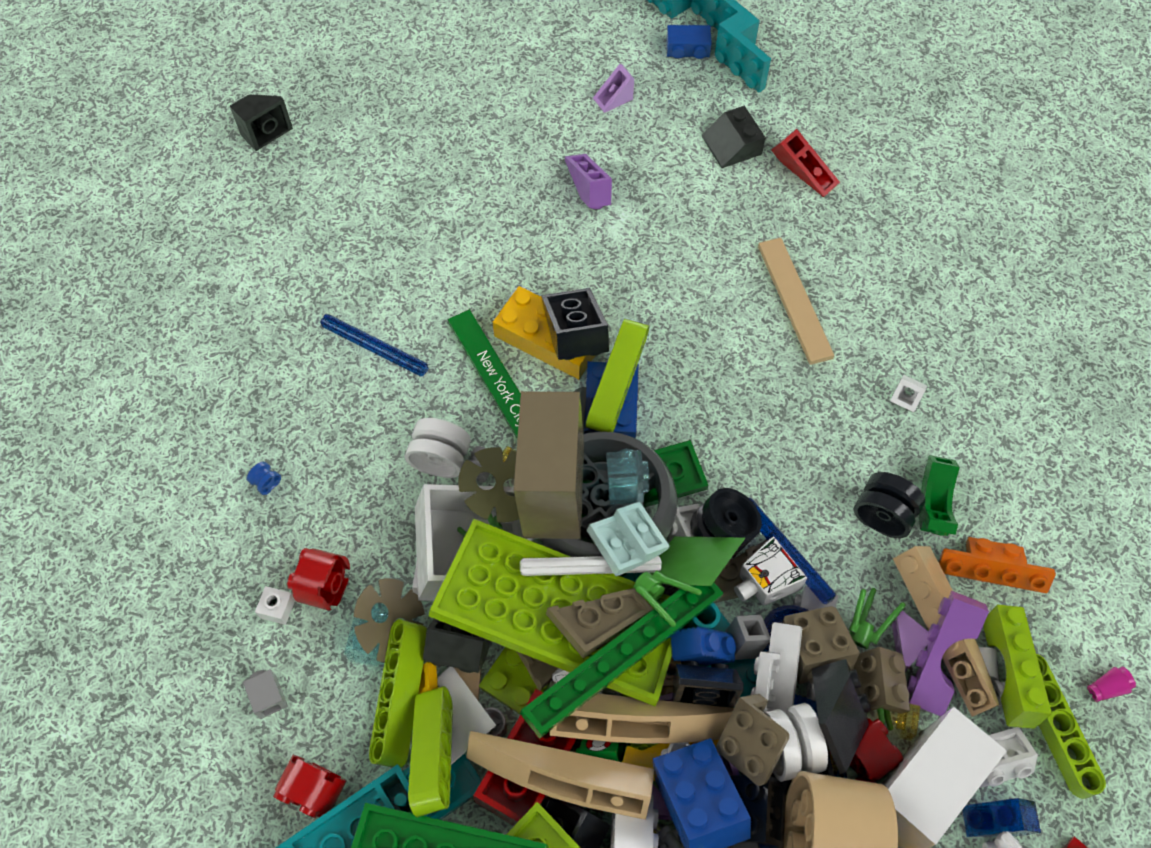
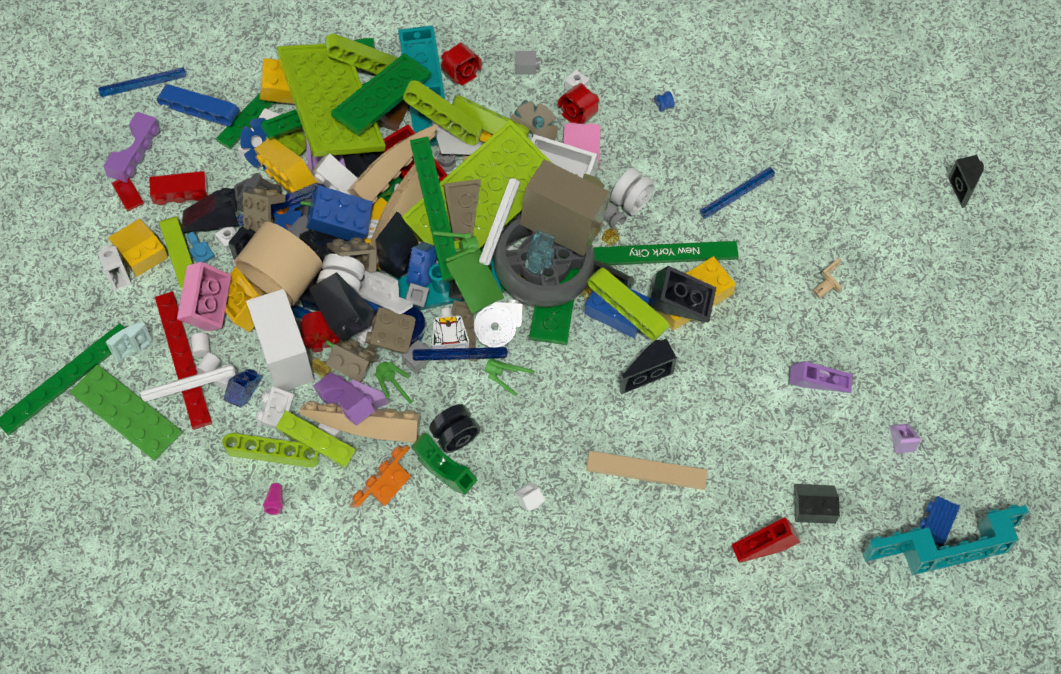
camera: 115 degrees right, 0 degrees up
(382, 550) = (583, 137): none -> bright pink brick
(460, 209) = (829, 282): none -> tan bracket
(627, 538) = (504, 244): light aqua slope -> none
(680, 335) = (653, 364): none -> black slope
(771, 504) = (496, 367): none -> bright green plant

